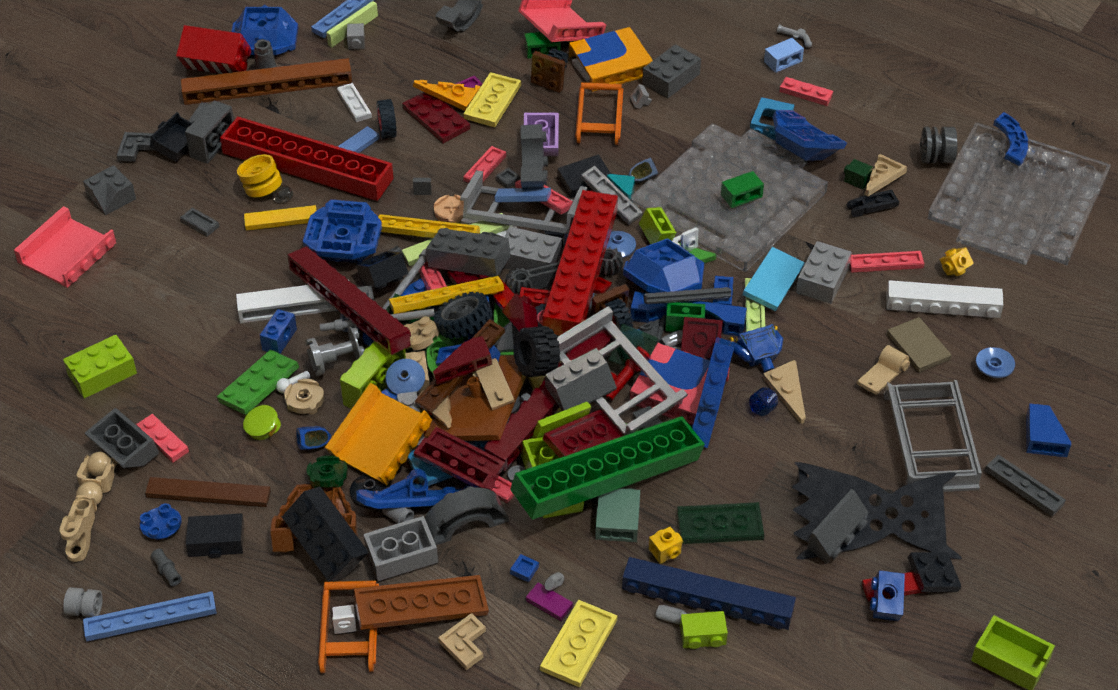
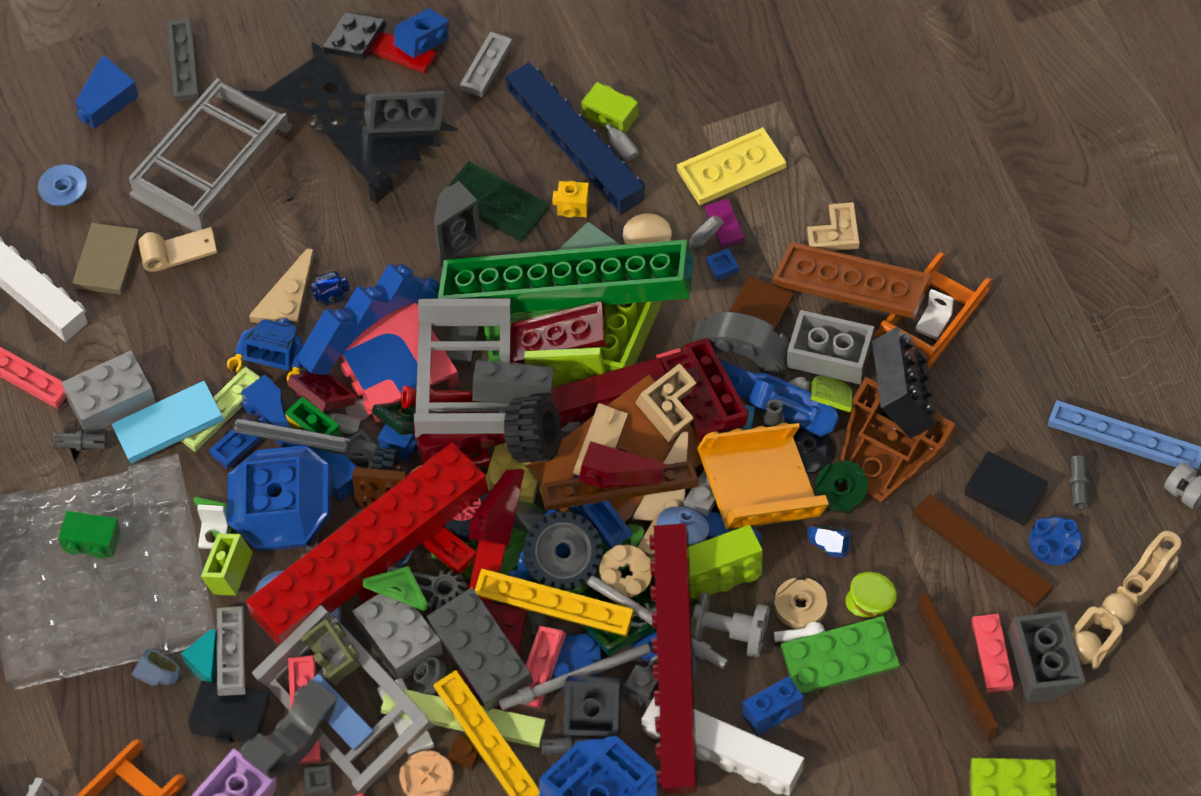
camera: 140 degrees left, 10 degrees up
(179, 413) = (957, 667): none -> reddish brown tile
(373, 511) = (831, 393): none -> lime window
(399, 470) = (774, 413): none -> dark grey pin
(468, 418) = (663, 404): none -> tan brick
(476, 558) = (763, 301): none -> reddish brown tile
(544, 256) = (398, 585): none -> bright green tile
(549, 212) = (332, 650): none -> olive window
(596, 561) = (646, 229): none -> tan dish
(719, 466) = (456, 223): none -> dark grey slope
(806, 248) = (79, 441): none -> dark grey pin
(824, 610) = (486, 64): none -> light grey plate

